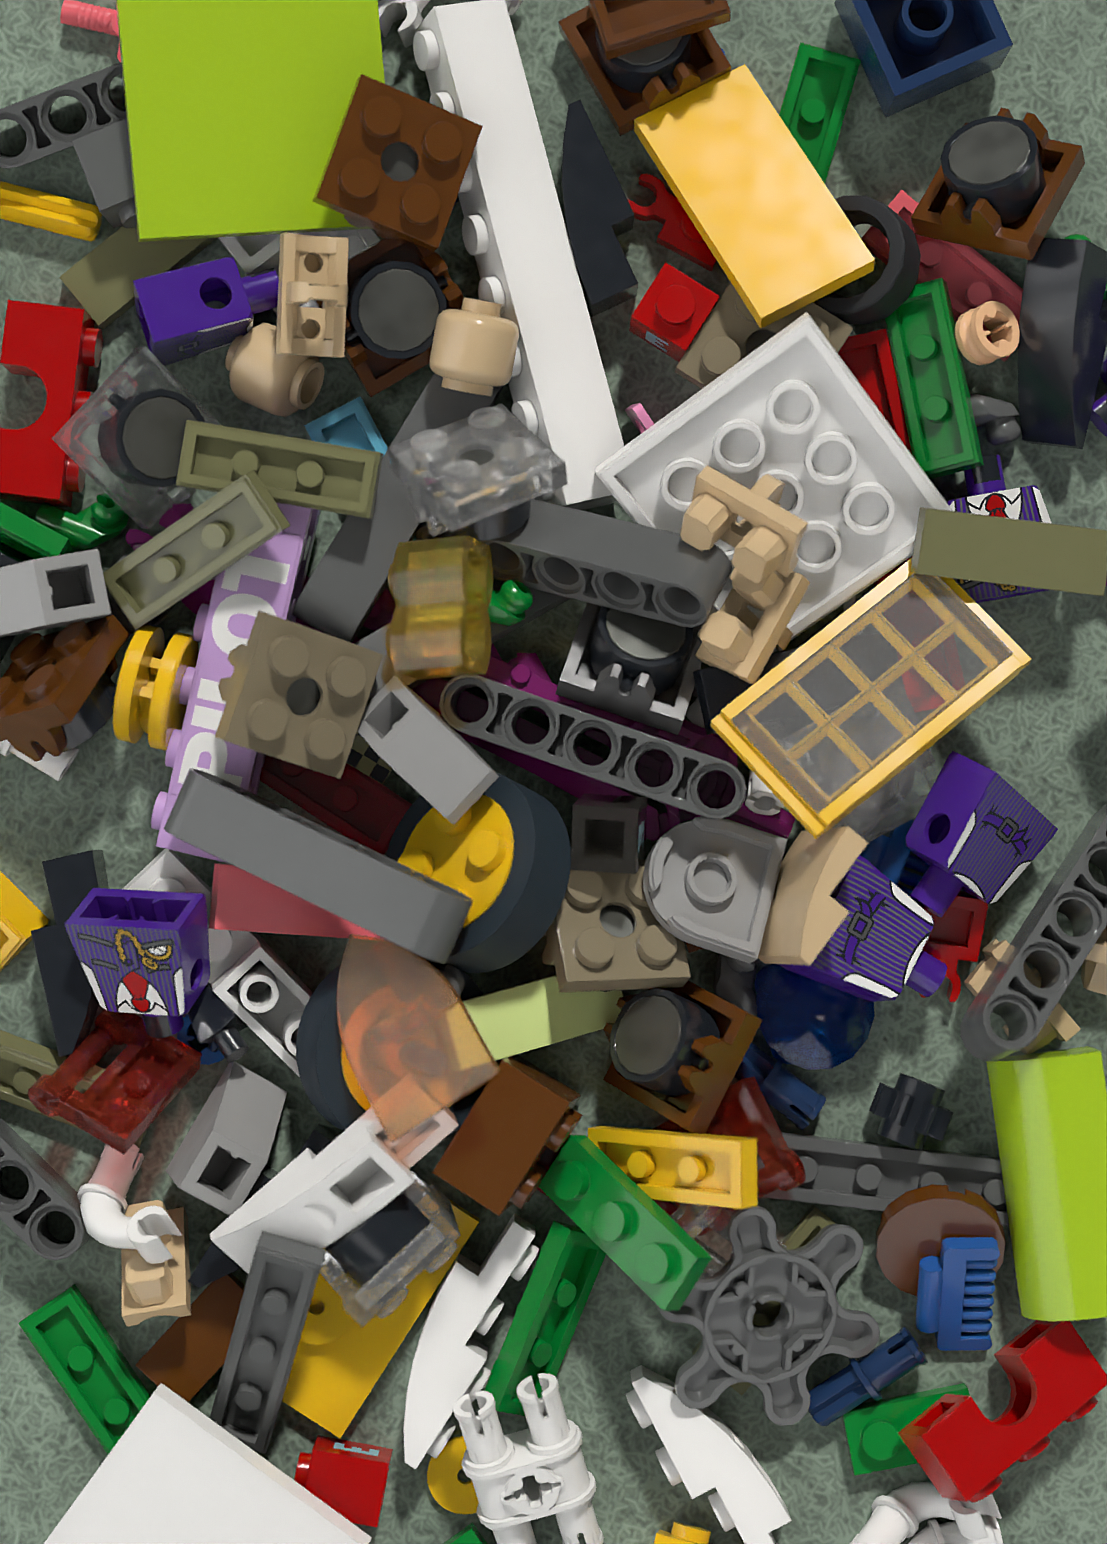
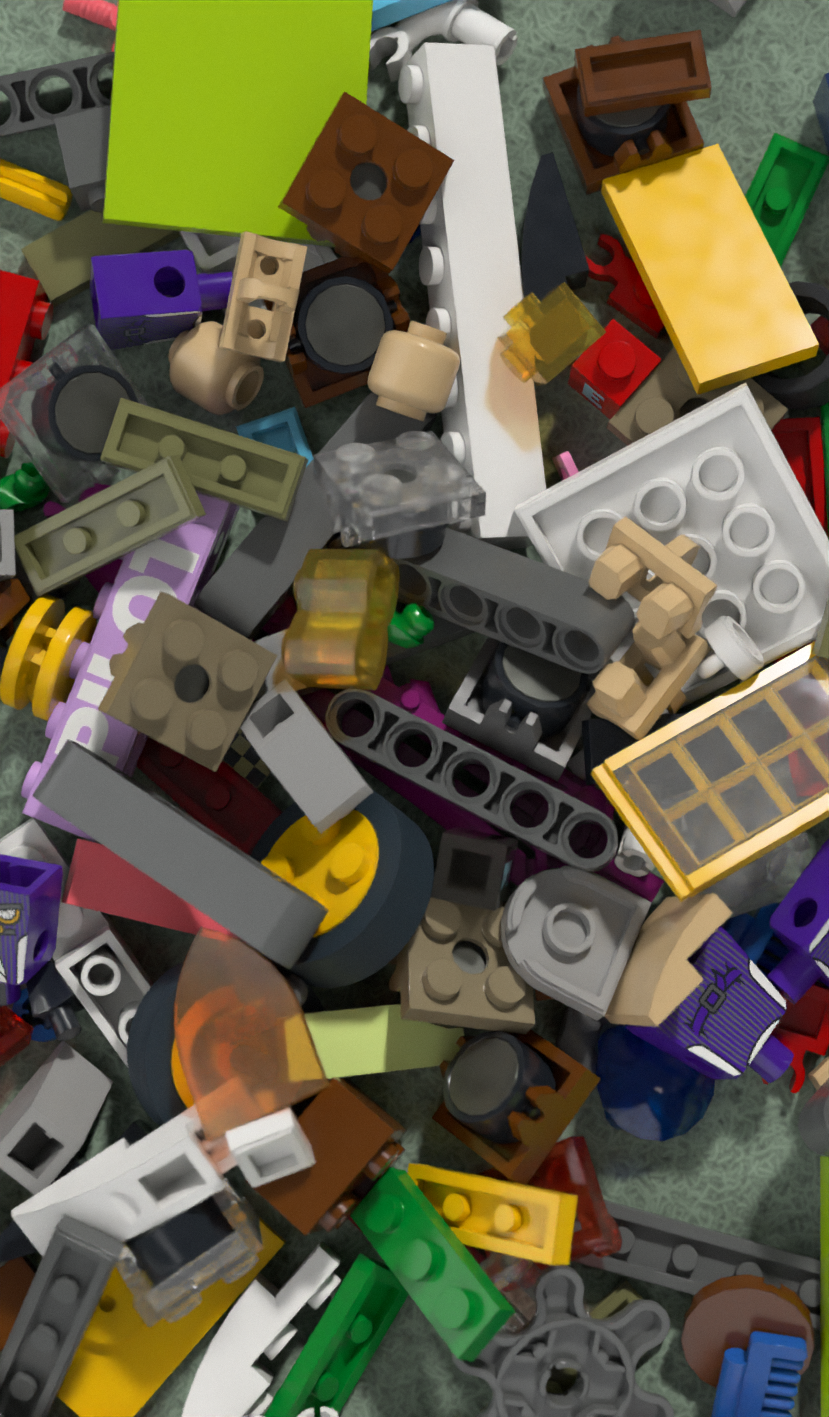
camera: 10 degrees right, 5 degrees down
(452, 1138) = (270, 1147): none -> white tile
(602, 290) = (547, 334): none -> clear yellow brick
(781, 1087) = (608, 1152): dark blue axle -> none
(830, 579) = (732, 648): none -> white tile
(911, 1111) = (737, 1197): black gear -> none

